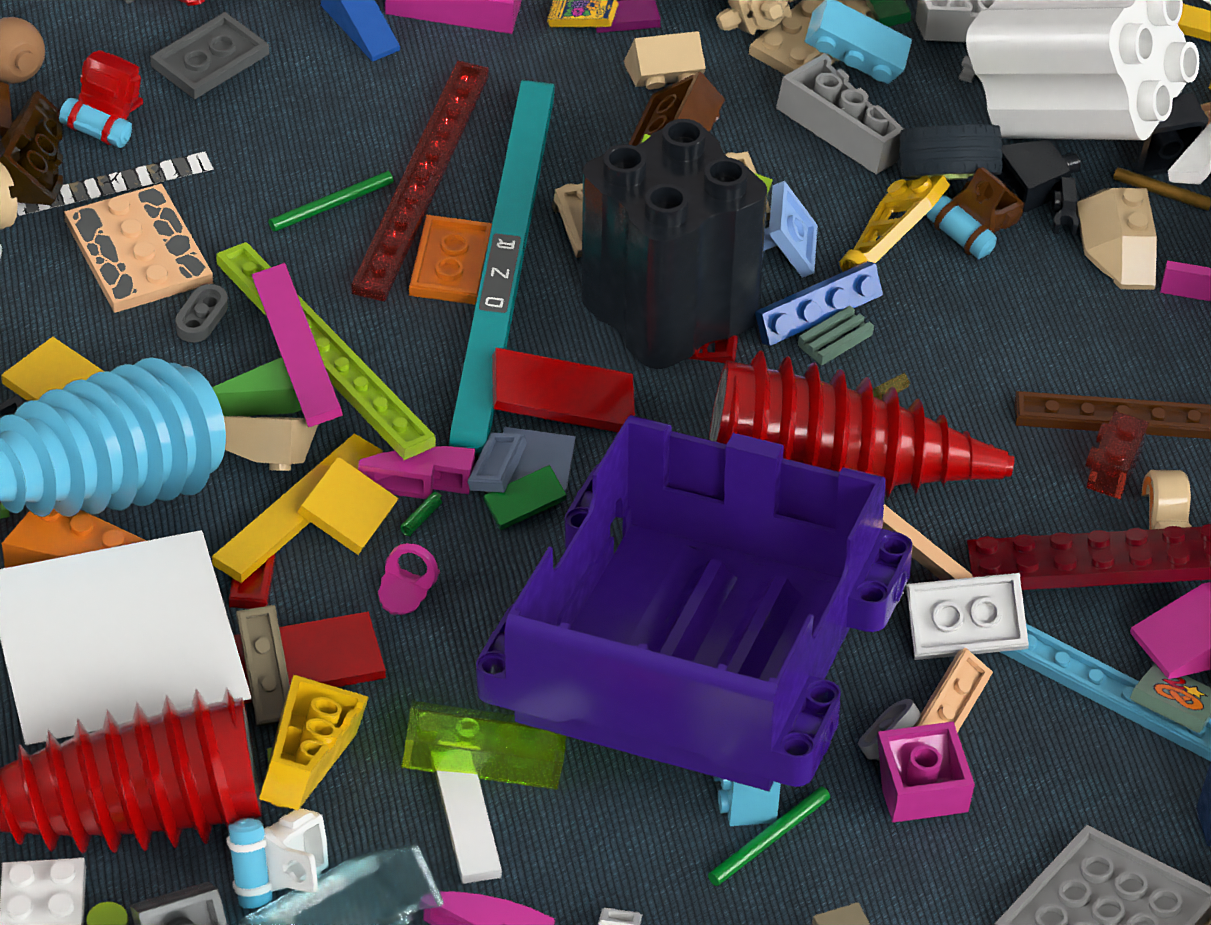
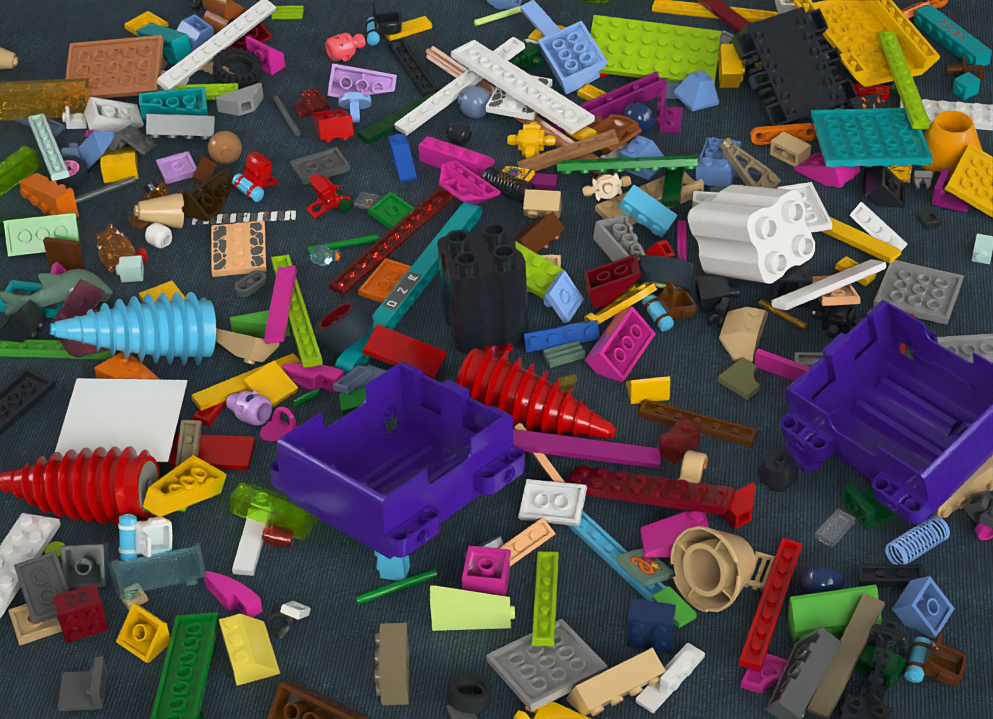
camera: 25 degrees right, 5 degrees down
(264, 112) = (328, 195): none -> red piece
(314, 231) = (323, 255): none -> clear light blue animal
(334, 556) = (250, 407): none -> lavender piece
(345, 109) = (366, 200): none -> clear tile
(392, 121) = (390, 210): none -> green tile
(437, 362) = (343, 325): none -> black wheel
(511, 45) = (465, 184): none -> dark pink wedge
(515, 793) = (277, 536): none -> clear red brick
(539, 25) = (493, 178): none -> black piece
(867, 182) = (611, 280): none -> dark red slope
(916, 112) = (661, 249): none -> red brick
(926, 849) = (468, 610): none -> yellowish green slope
(928, 300) = (620, 345): none -> dark pink slope
(931, 87) = (682, 240): none -> dark pink axle
(990, 505) = (587, 449): none -> magenta tile
(1015, 370) = (650, 389): none -> yellow slope
(1043, 796) = (545, 599): none -> lime tile
(1153, 321) = (741, 378): none -> olive tile

